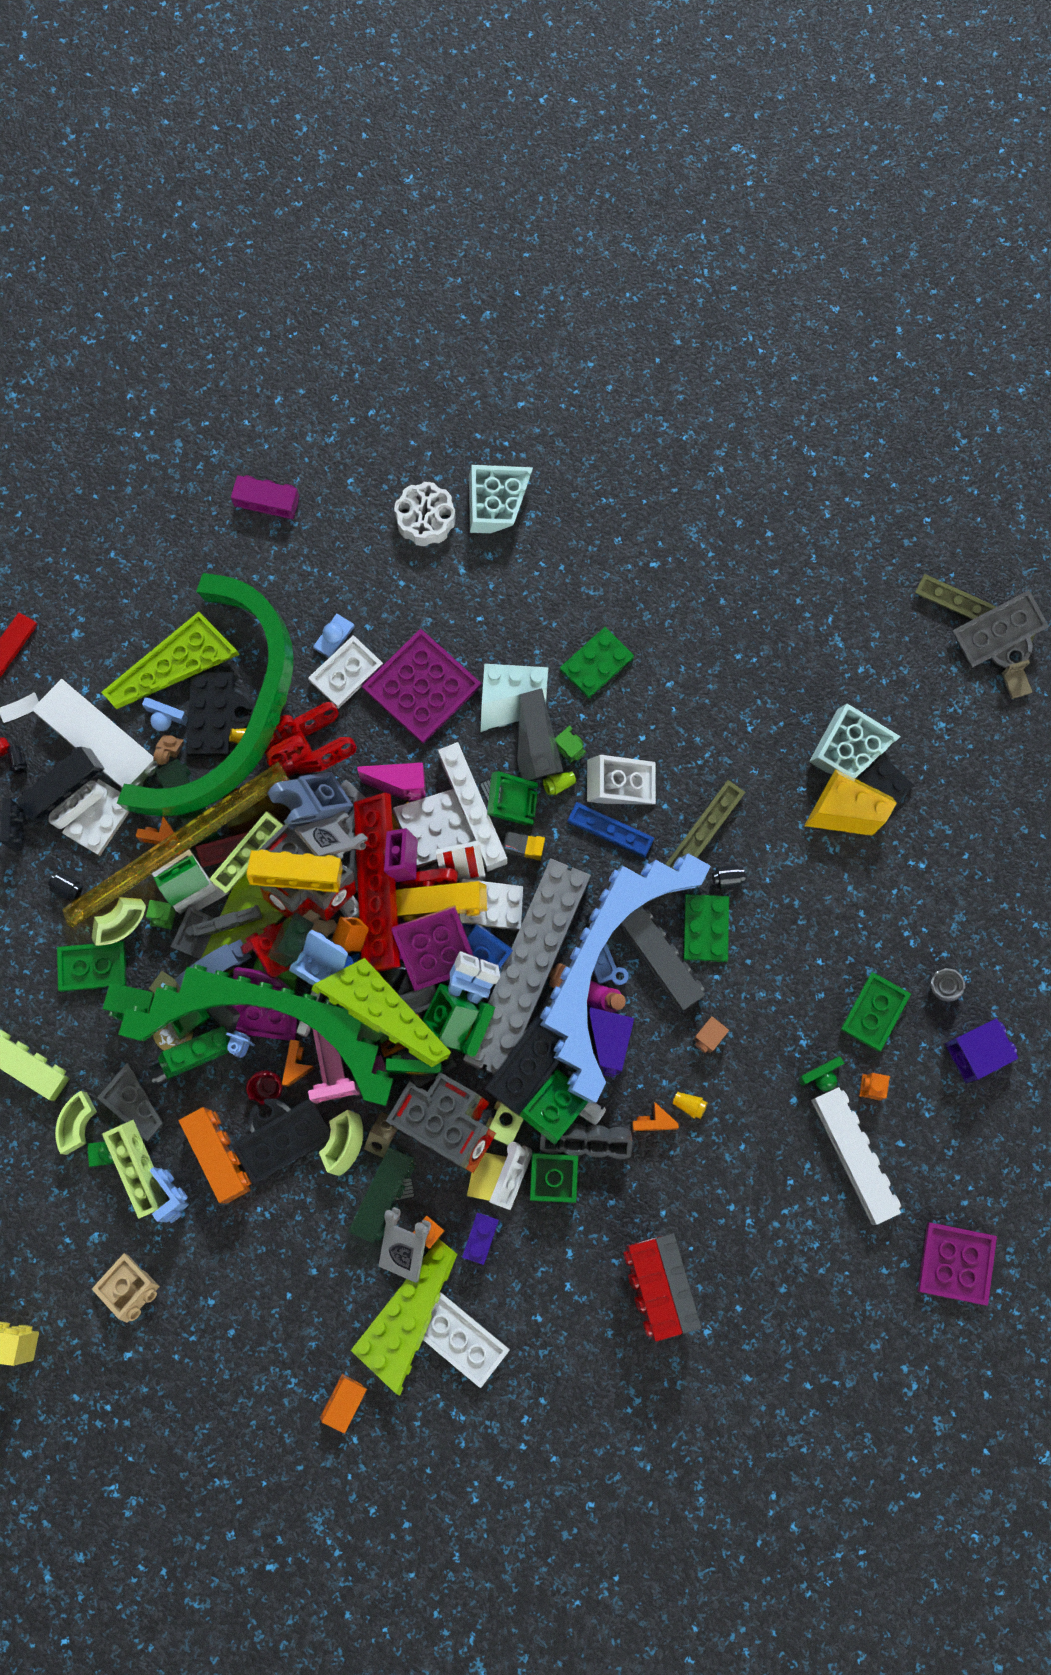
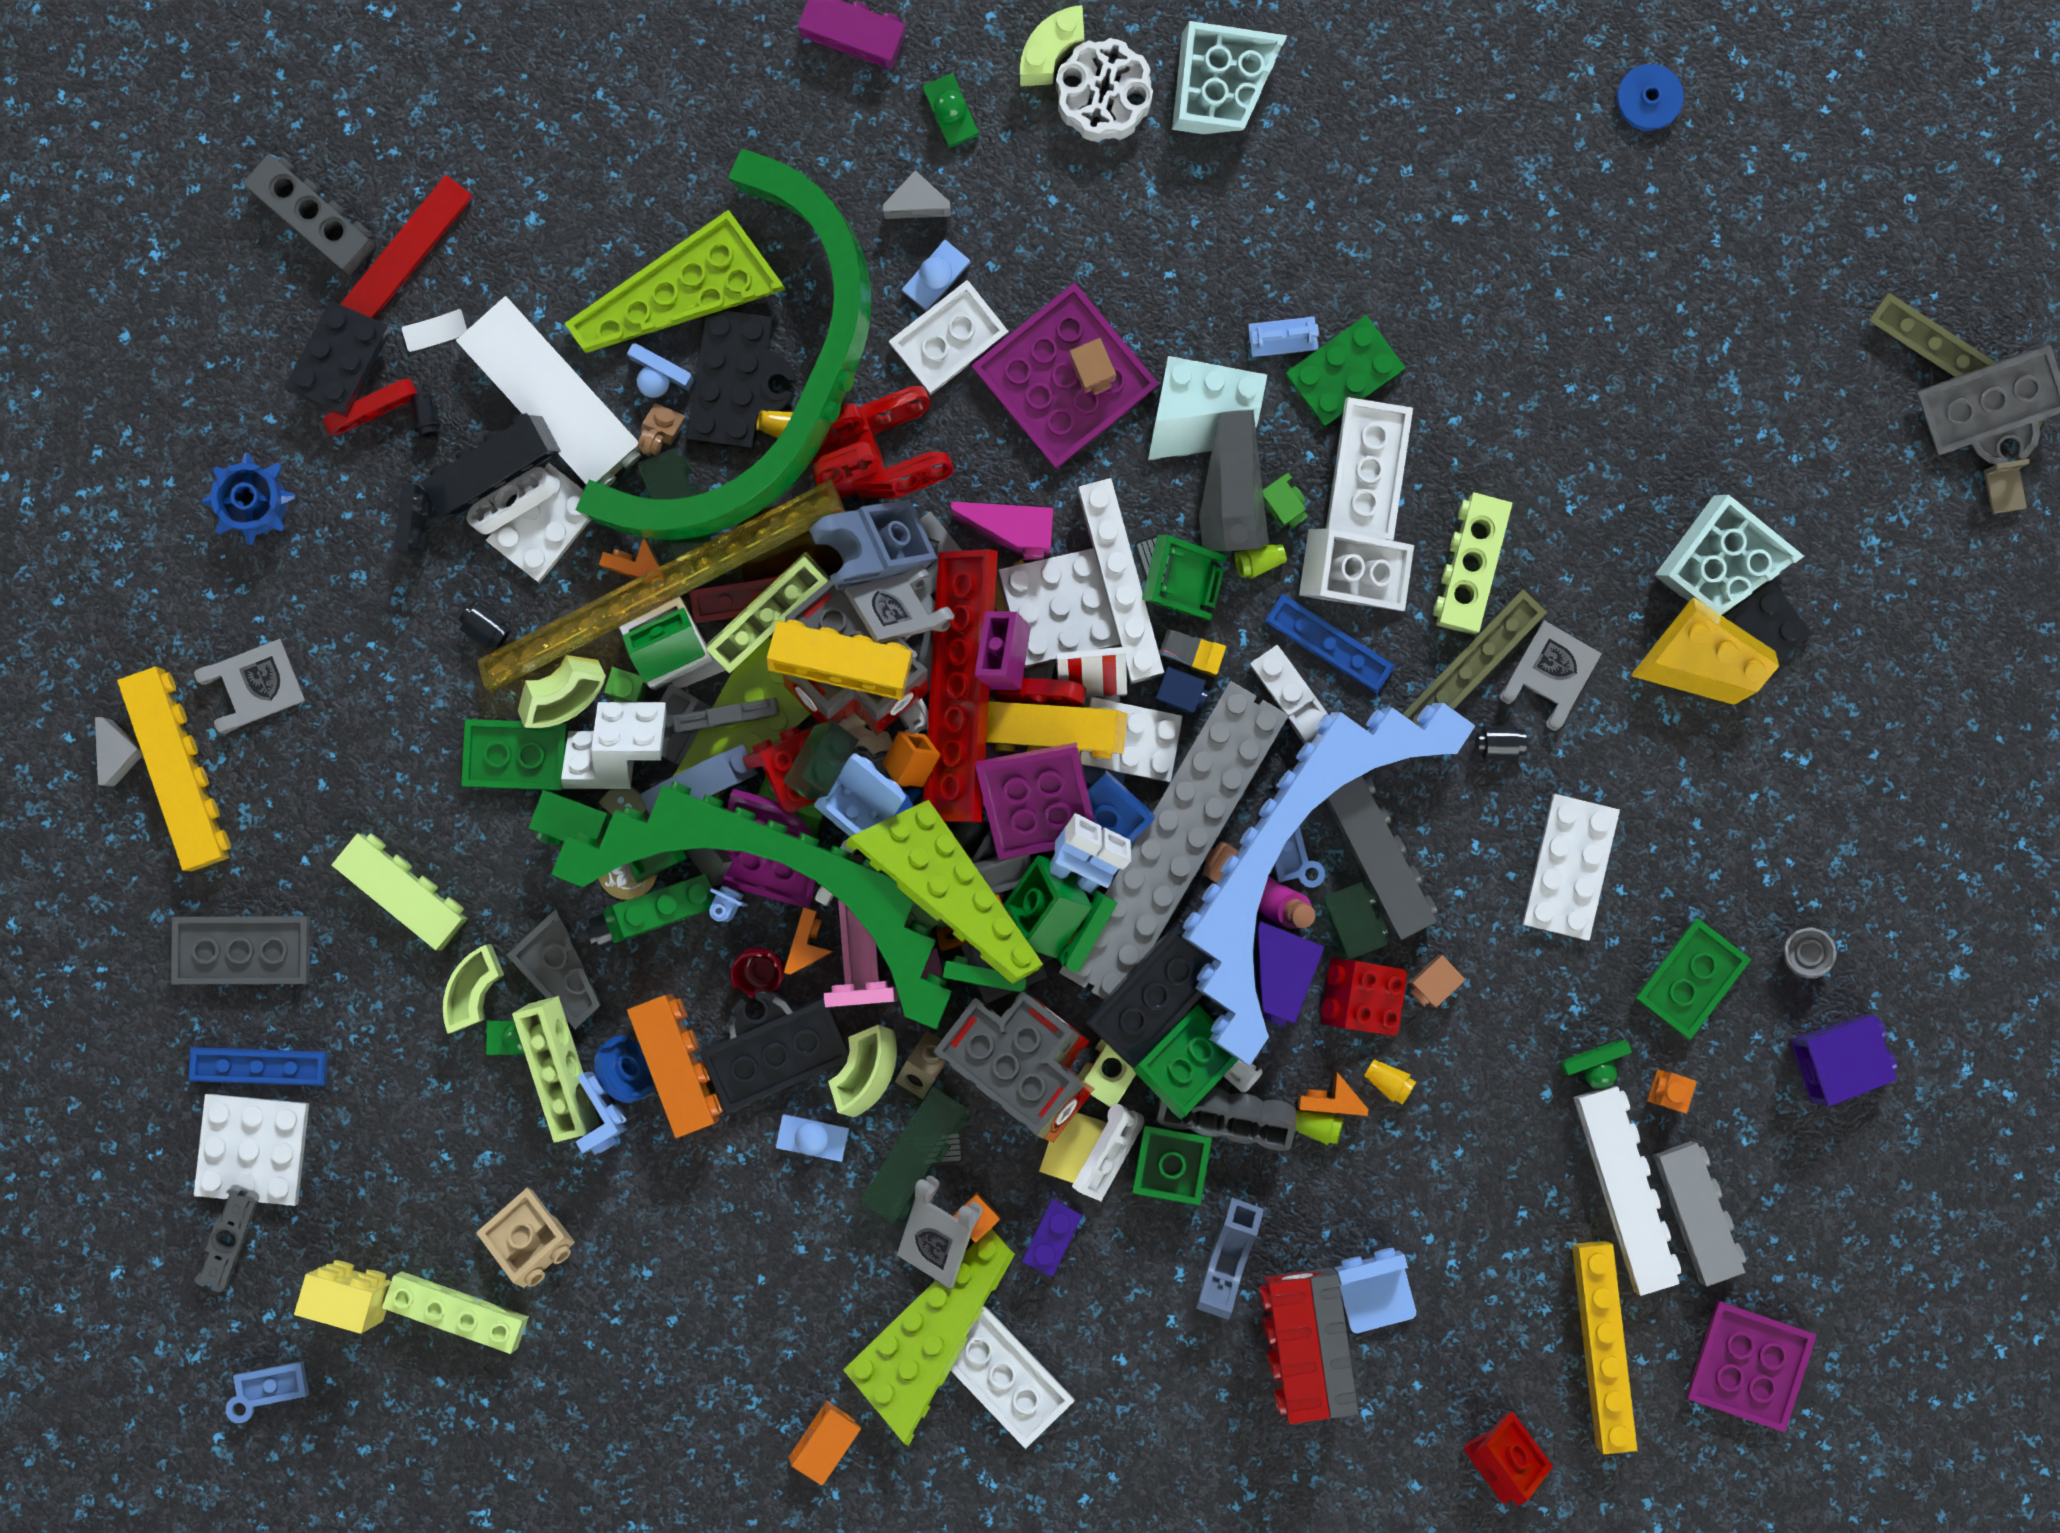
camera: 10 degrees right, 10 degrees up
(81, 1346) = (455, 1312): none -> yellowish green brick
(156, 946) = (619, 737): none -> white bracket
(181, 1163) = (623, 1069): none -> blue plate
(313, 1193) = (812, 1138): none -> light blue tile
(316, 592) = (916, 200): none -> light grey slope
(331, 537) = (950, 110): none -> green tile
(388, 491) = (1050, 44): none -> yellowish green brick
(438, 676) = (1093, 367): none -> medium nougat brick
(520, 870) = (1182, 691): none -> dark blue brick
(555, 646) = (1283, 336): none -> light blue hinge
(589, 862) = (1289, 692): none -> white plate
(600, 1236) = (1229, 1258): none -> sand blue arch
(620, 717) = (1369, 468): none -> white plate
(648, 1140) = (1319, 1126): none -> lime cone
(652, 1002) = (1355, 920): none -> clear green brick
(665, 1051) = (1363, 996): none -> red bracket
(701, 1246) = (1376, 1290): none -> light blue bracket
(702, 737) = (1494, 516): none -> yellowish green brick
(706, 928) = (1454, 816): green plate -> none
(755, 488) = (1639, 110): none -> blue plate
(755, 827) = (1554, 668): none -> light grey flag
(785, 951) = (1570, 867): none -> white plate
(807, 1350) = (1509, 1460): none -> red bracket
(859, 1264) = (1604, 1347): none -> yellow brick
(906, 1165) = (1699, 1213): none -> light grey brick

